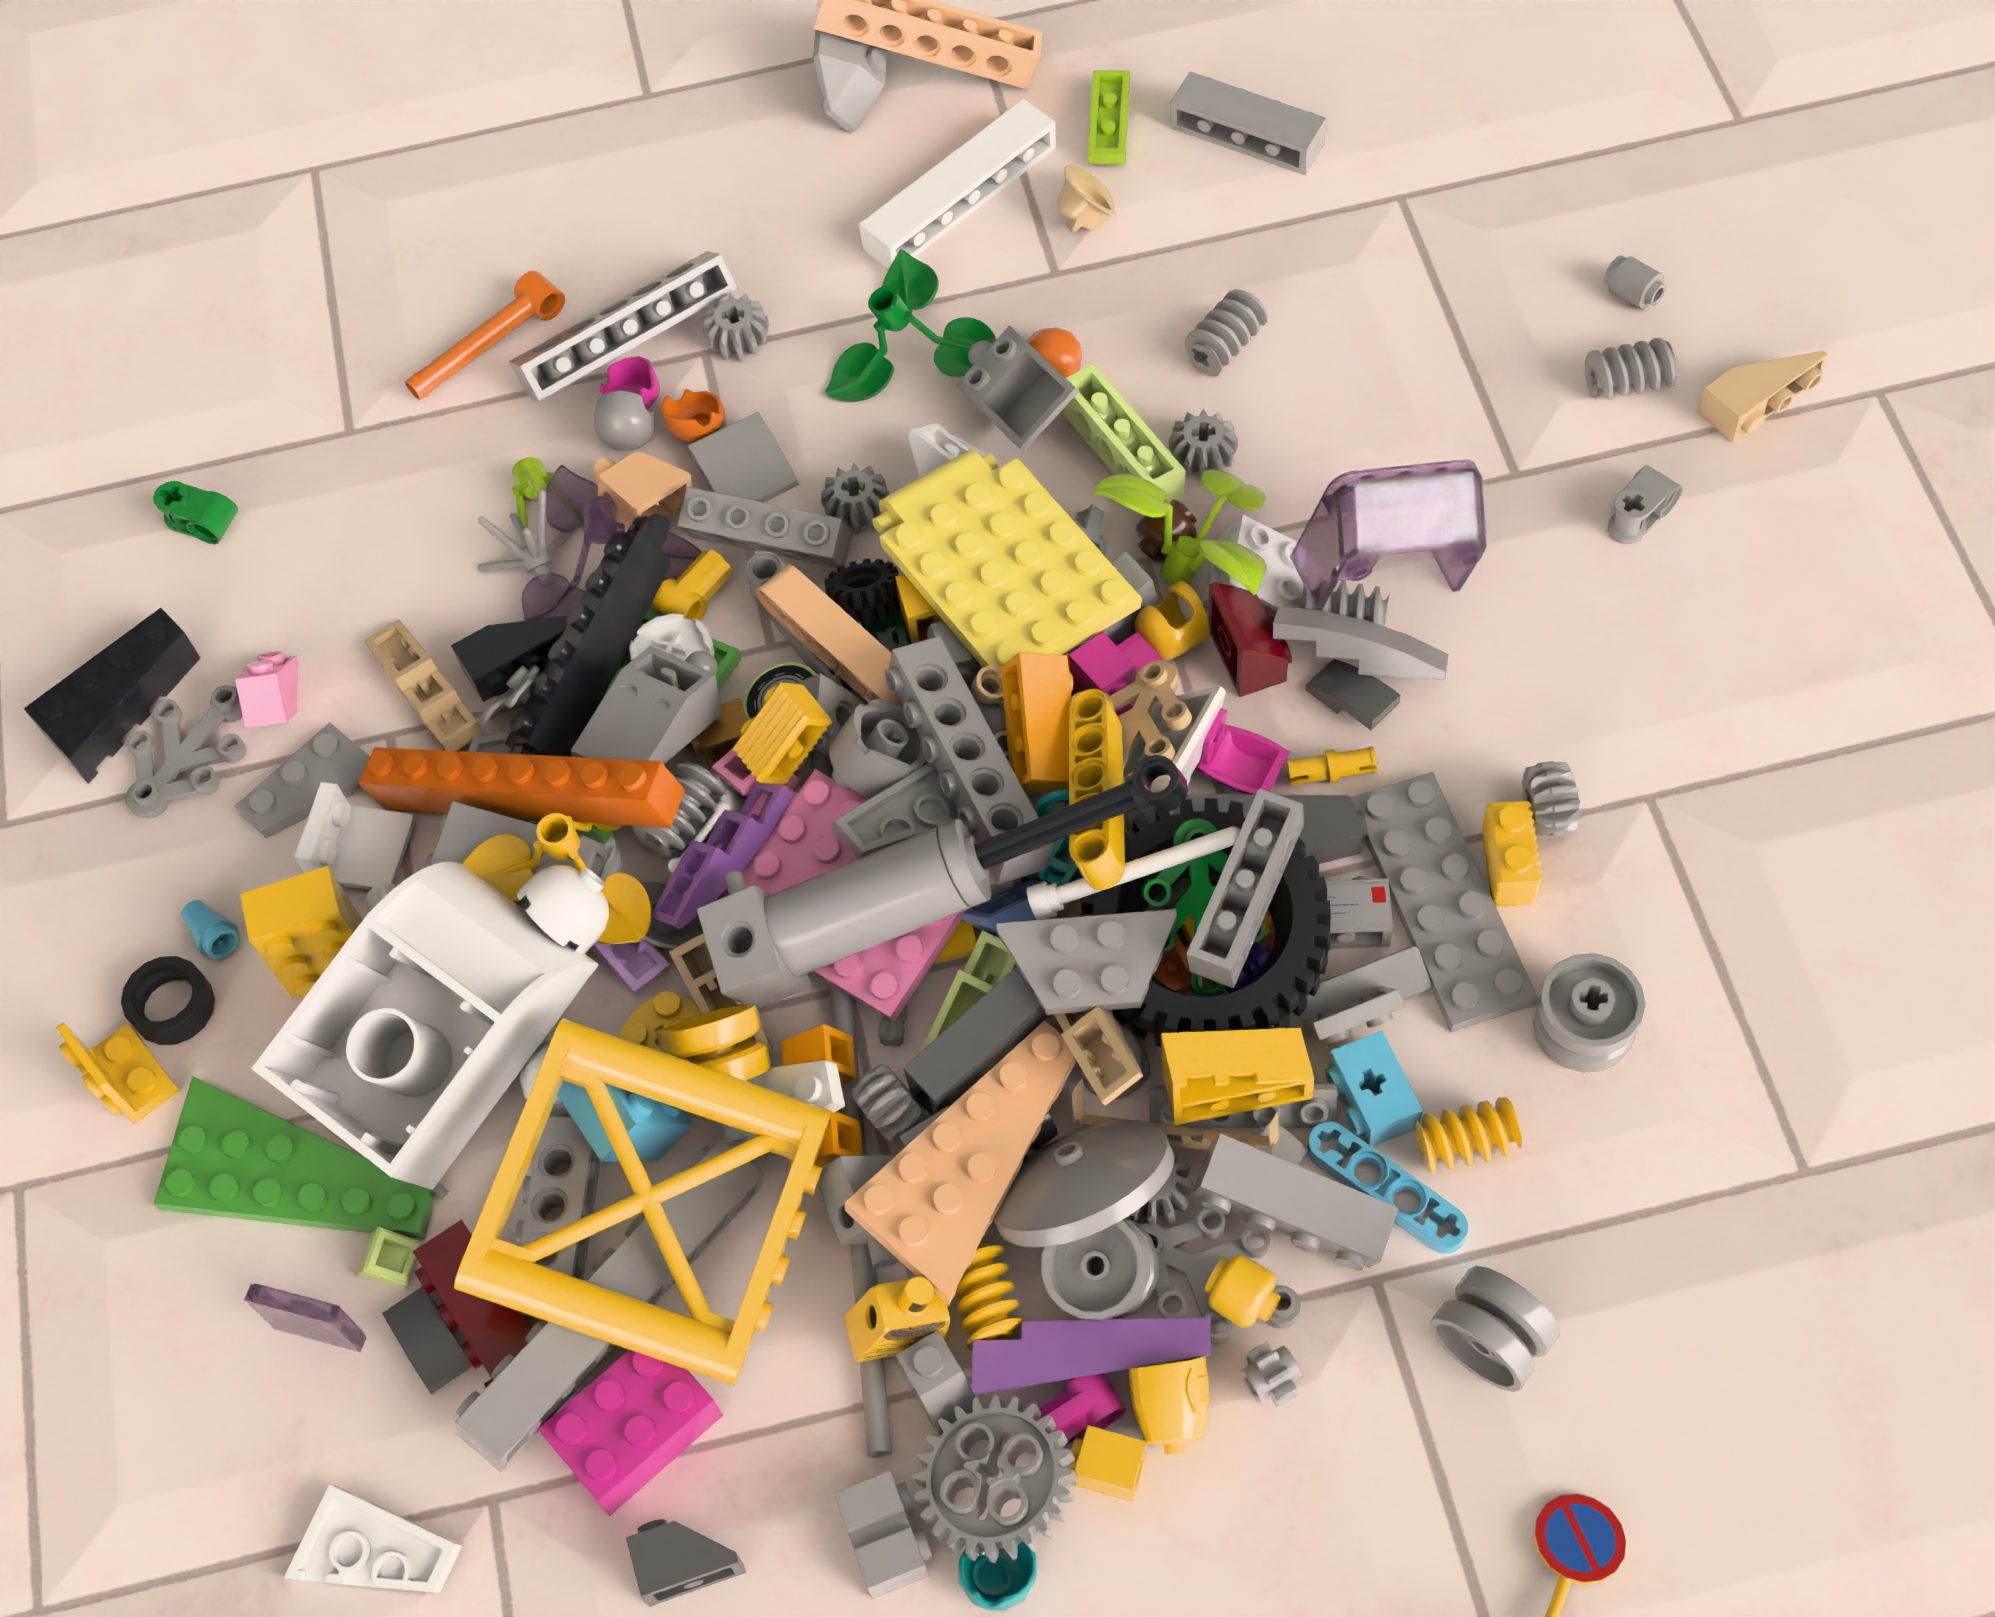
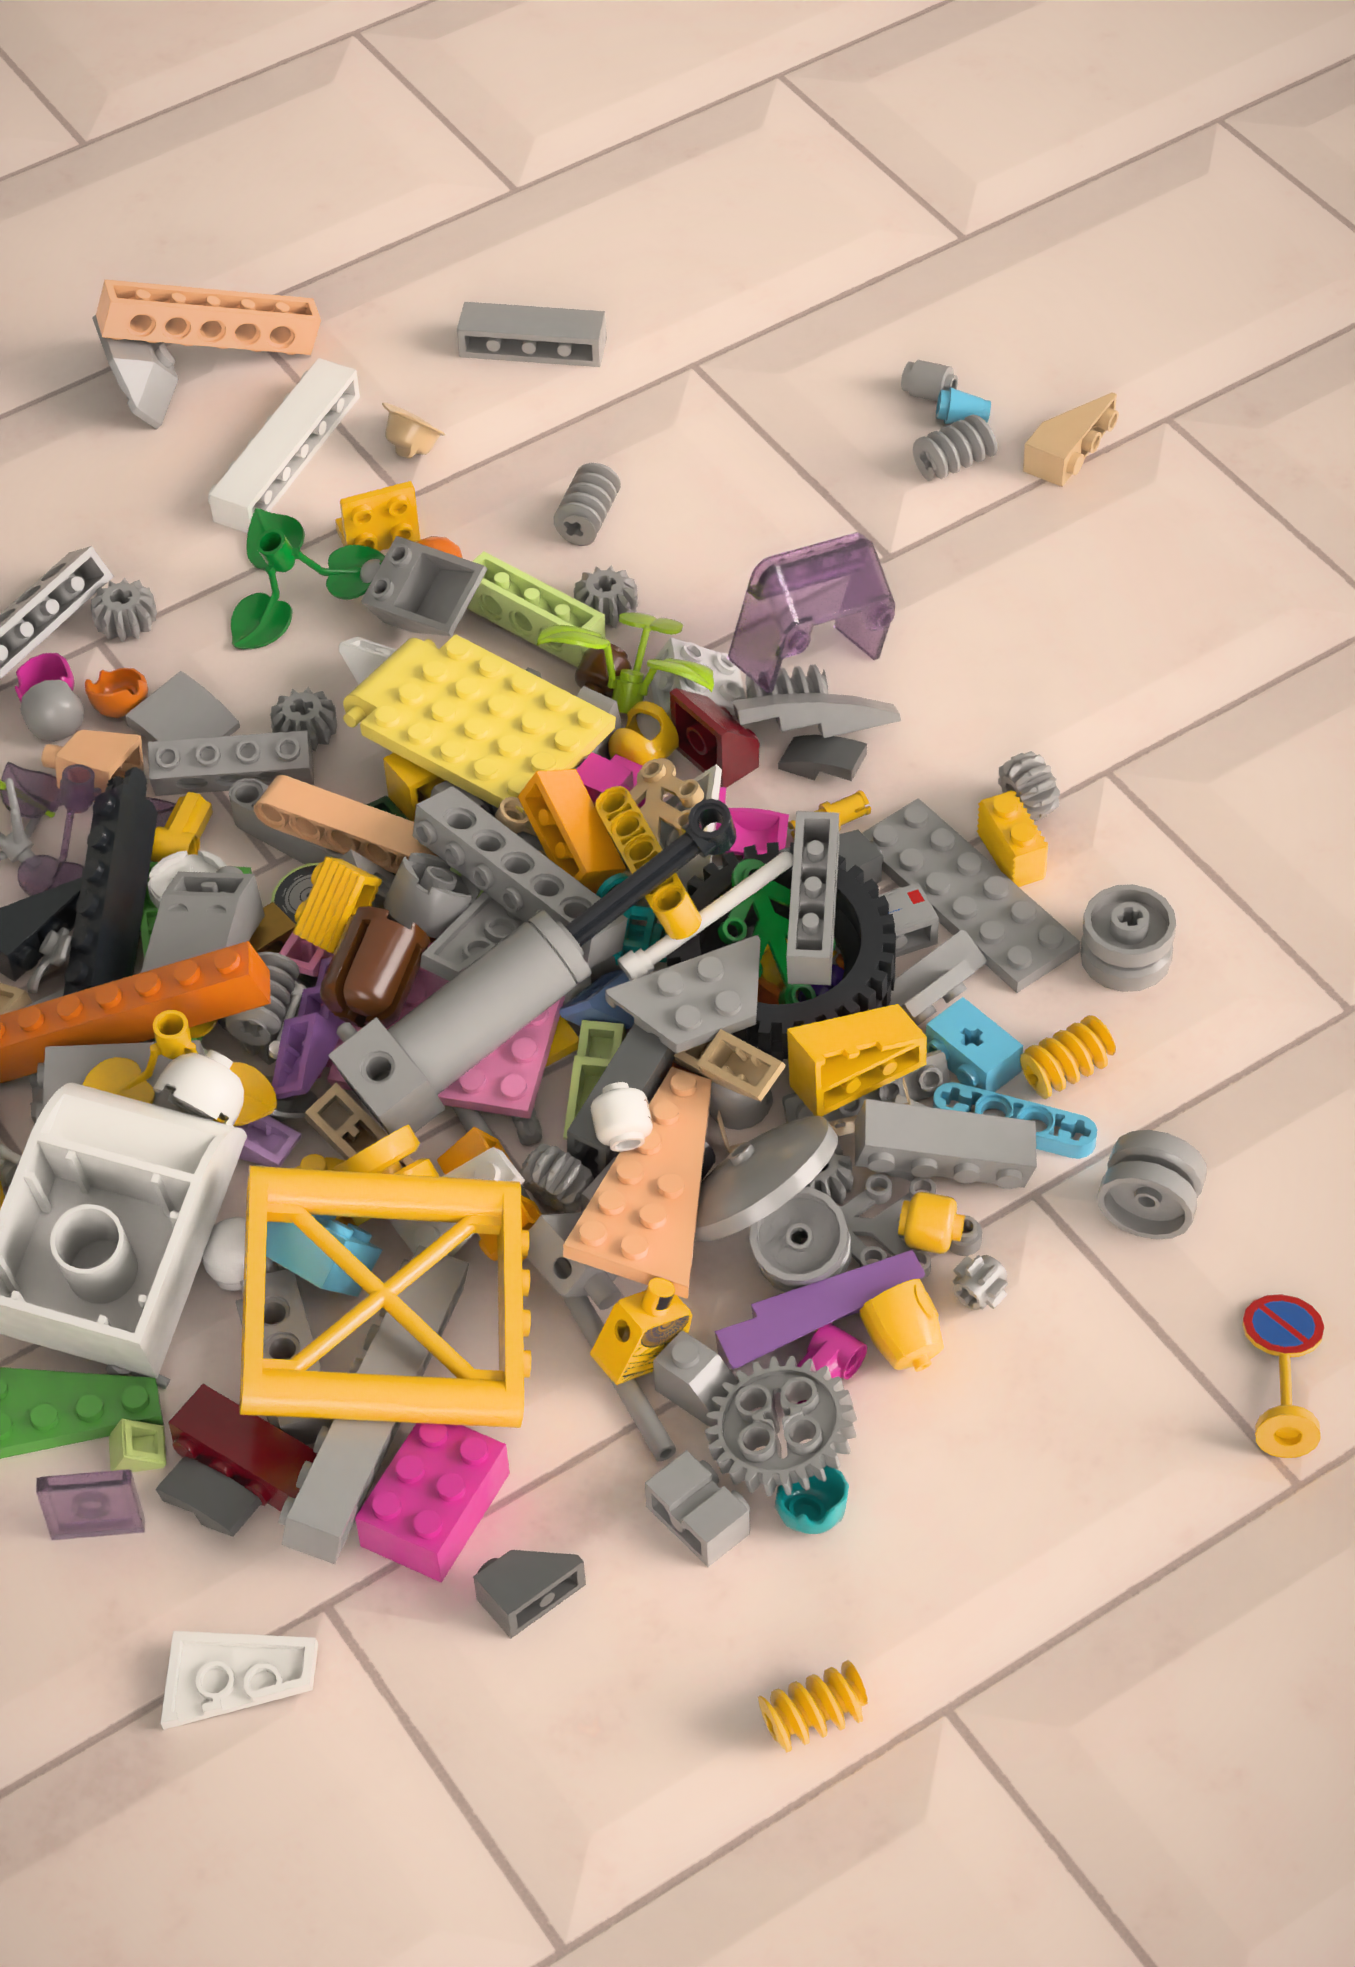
camera: 25 degrees left, 10 degrees down
(784, 820) = (373, 968): none -> reddish brown cylinder
(865, 589) = (355, 780): black tyre -> none
(956, 1076) = (621, 1117): none -> white head
(983, 1298) = (711, 1301): yellow piece -> none
(1012, 296) = (379, 516): none -> yellow bracket
(1108, 1462) = (874, 1390): yellow brick -> none
(1109, 117) = (401, 358): lime plate -> none
(1642, 504) = (1009, 549): light grey piece -> none
(1656, 321) = (957, 405): none -> medium azure cone

